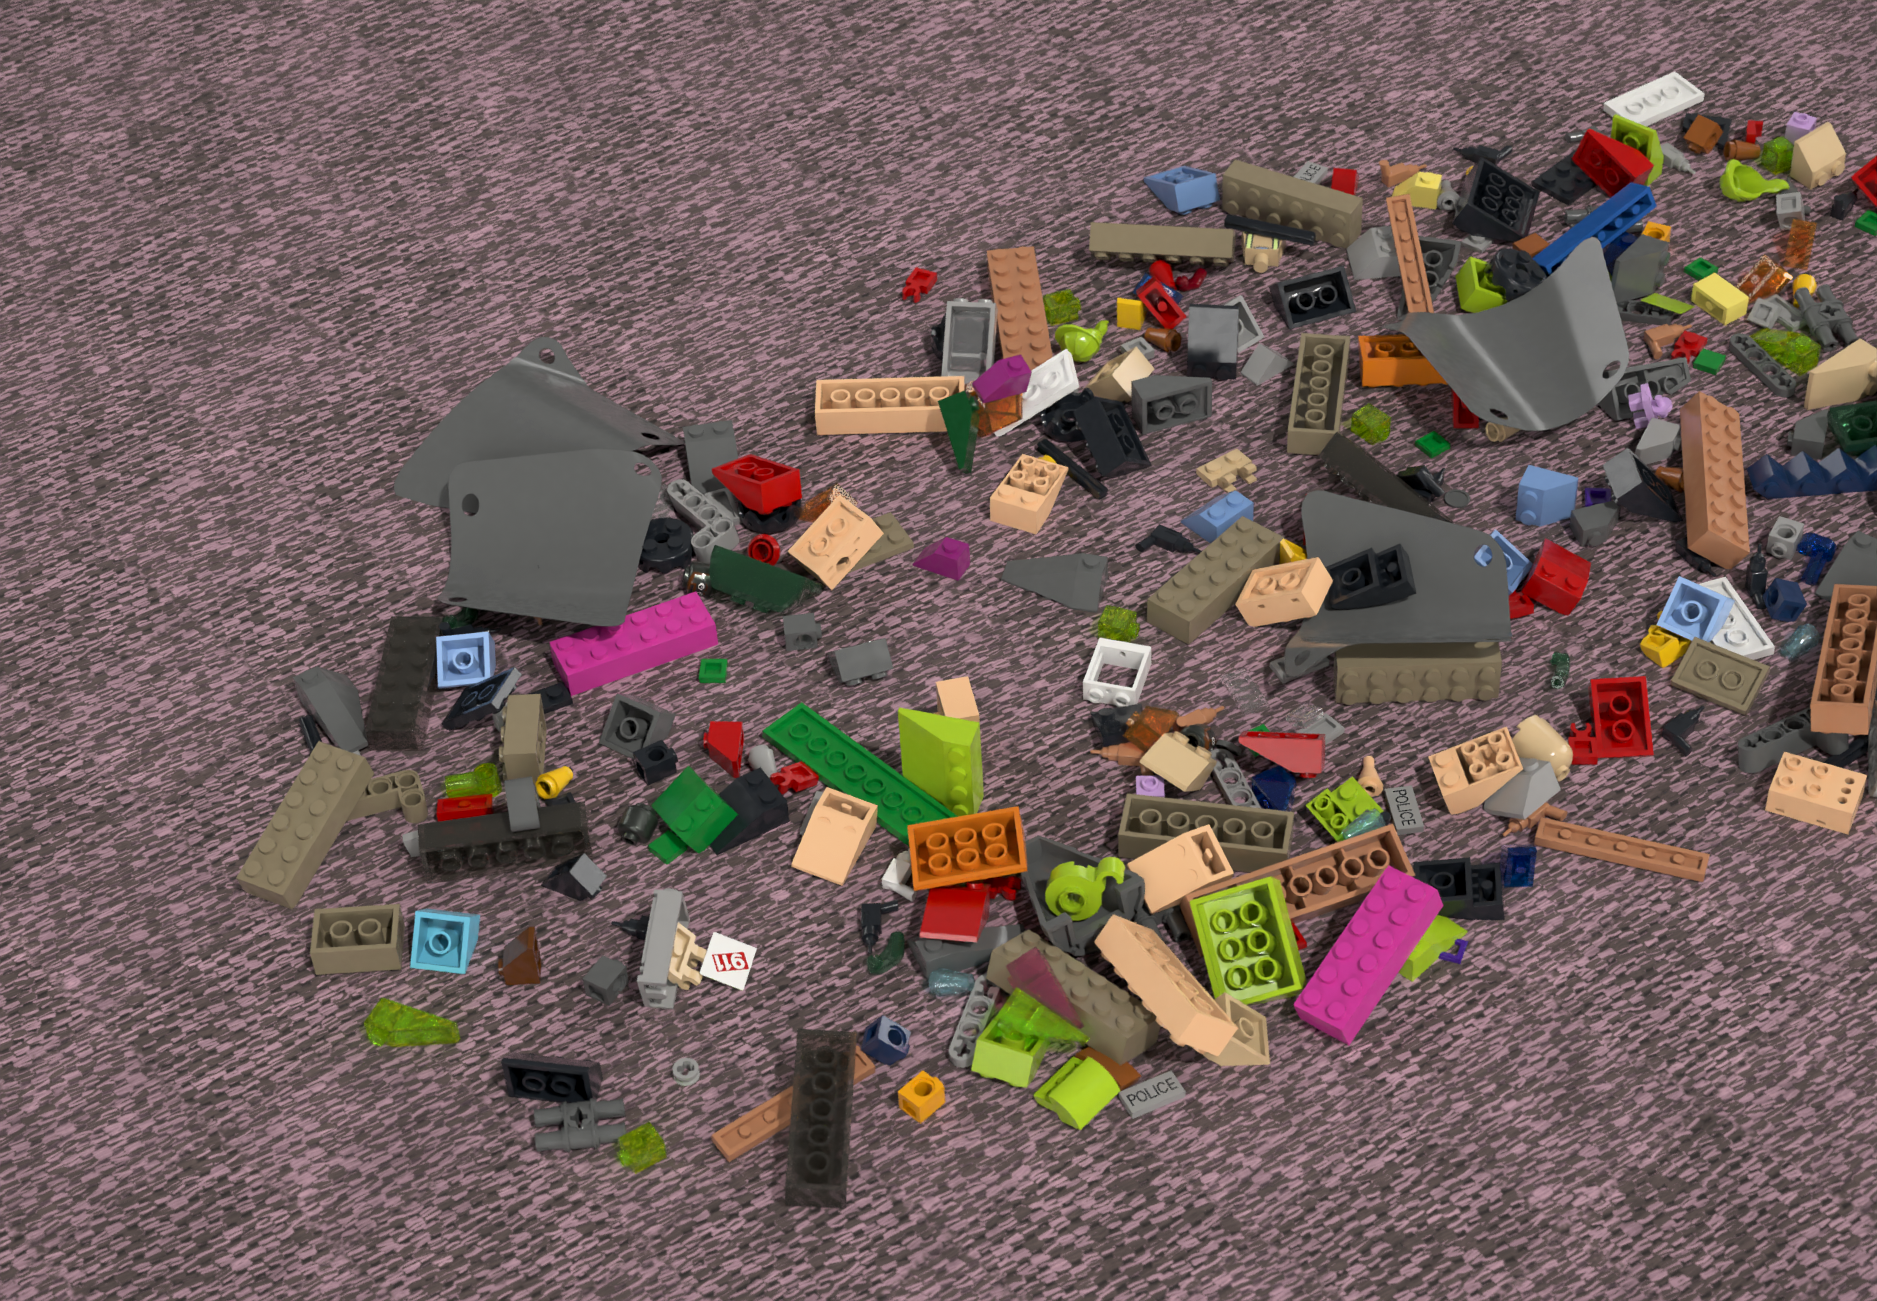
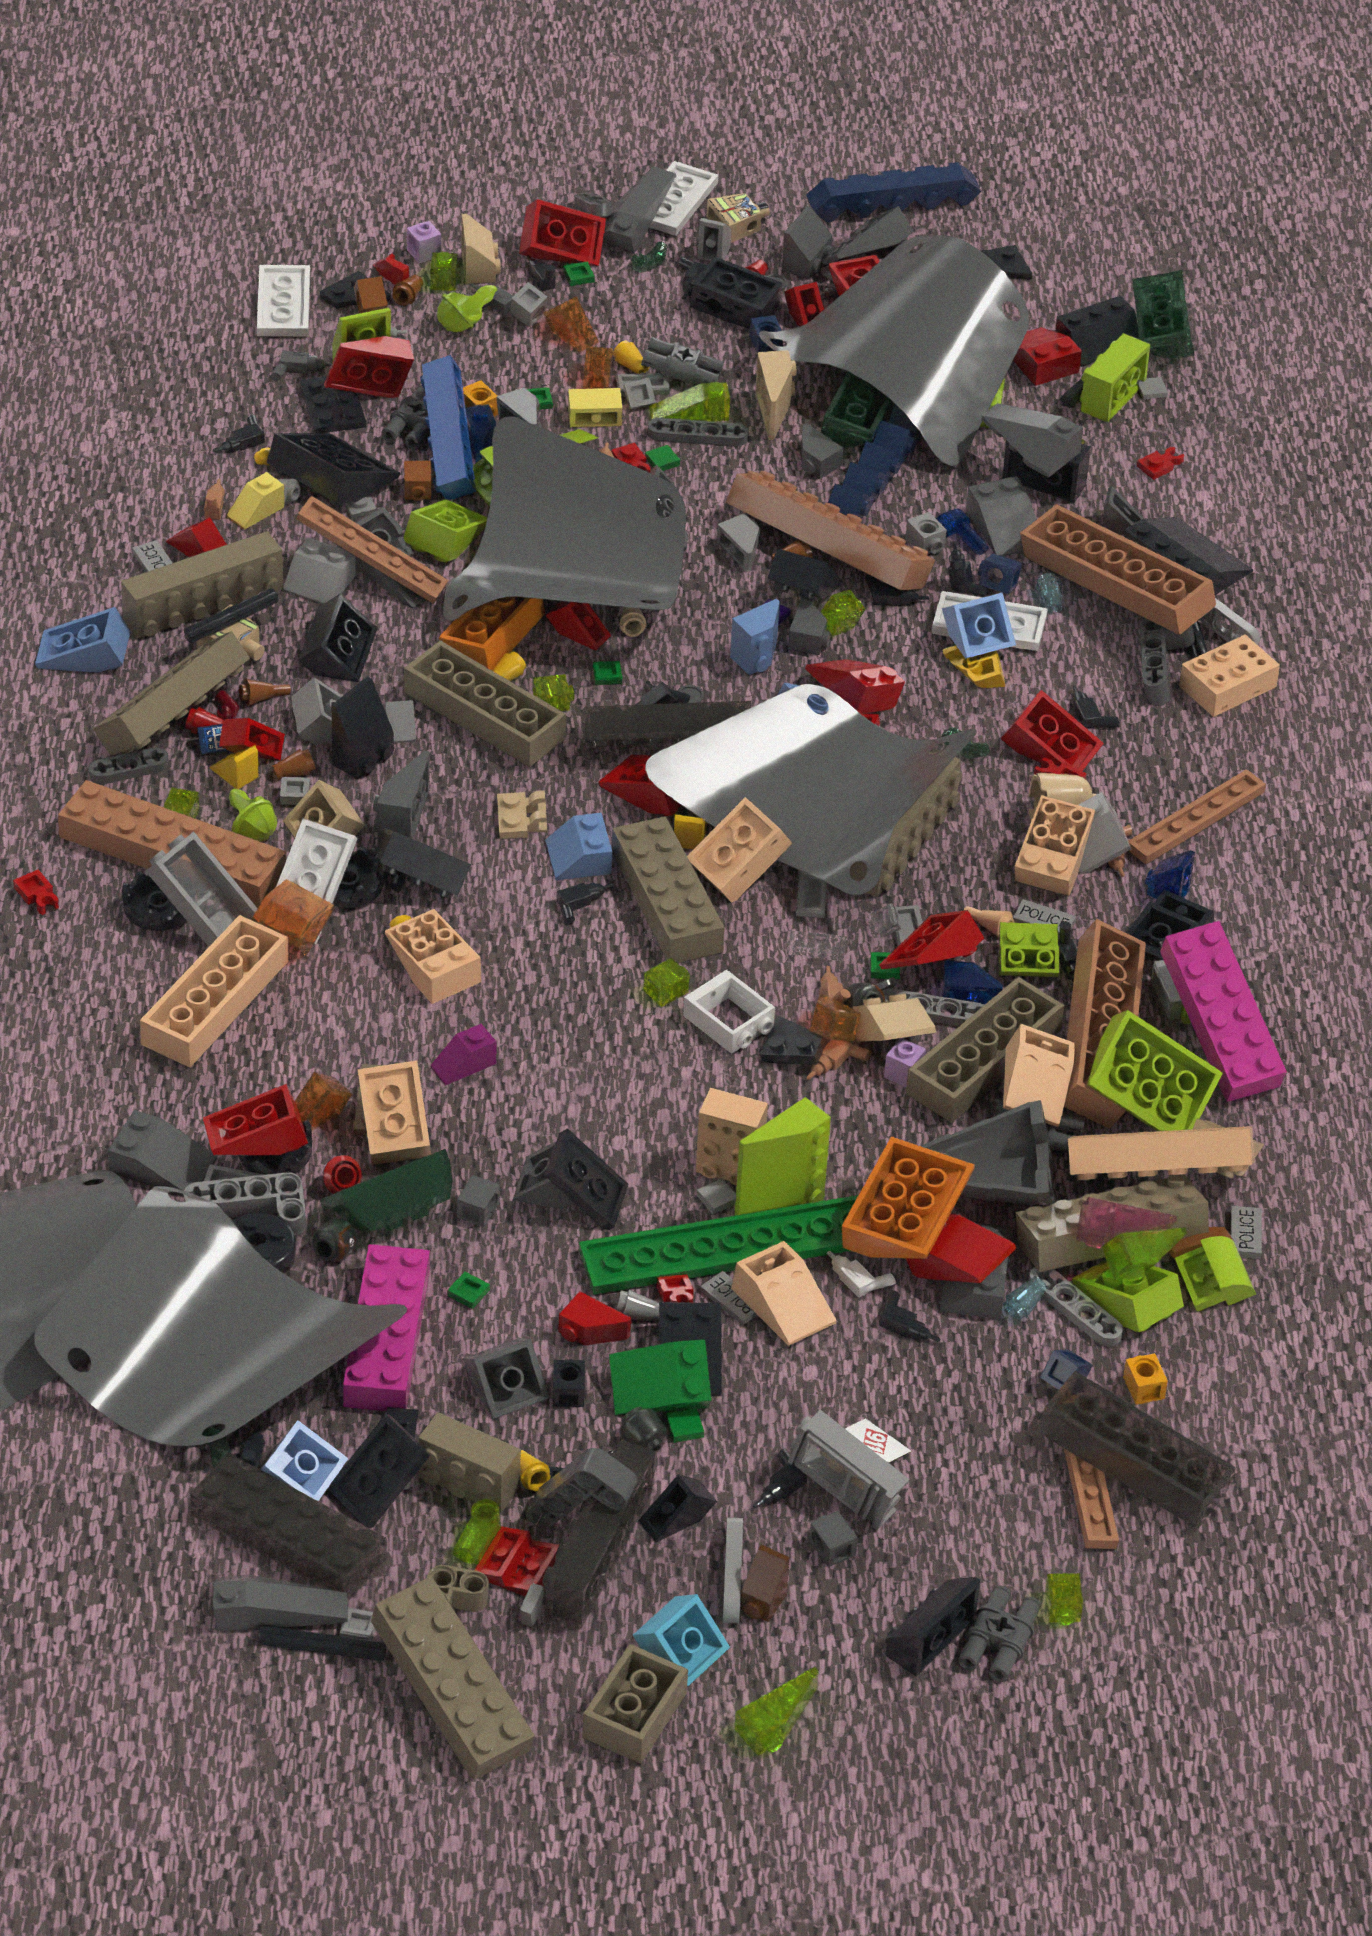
camera: 65 degrees left, 0 degrees up
(572, 920) = (732, 1573): none -> light grey beam
(693, 1074) = (990, 1539): light grey bush -> none
(855, 671) = (586, 1179): none -> black plate
(889, 957) = (954, 1325): clear green arm -> none
(962, 426) = (312, 947): dark green slope -> none
(1003, 379) = (293, 884): magenta slope -> none
(1068, 579) = (572, 986): dark grey wedge -> none
(1073, 260) = (133, 758): none -> dark grey beam
(1075, 471) = (448, 912): black axle -> none
(1079, 888) = (1004, 1152): lime piece -> none
(1219, 284) = (256, 691): none -> dark orange cone
(1364, 823) = (1070, 941): clear light blue cone -> none
(1371, 578) = (779, 783): black slope -> none
(1374, 391) = (510, 666): none -> yellow cone
(1515, 272) = (461, 497): black plate -> none
(1629, 530) = (842, 612): none -> clear neon green brick
(1652, 408) = (702, 520): lavender hips -> none
(1720, 676) = (1055, 655): dark tan plate -> none

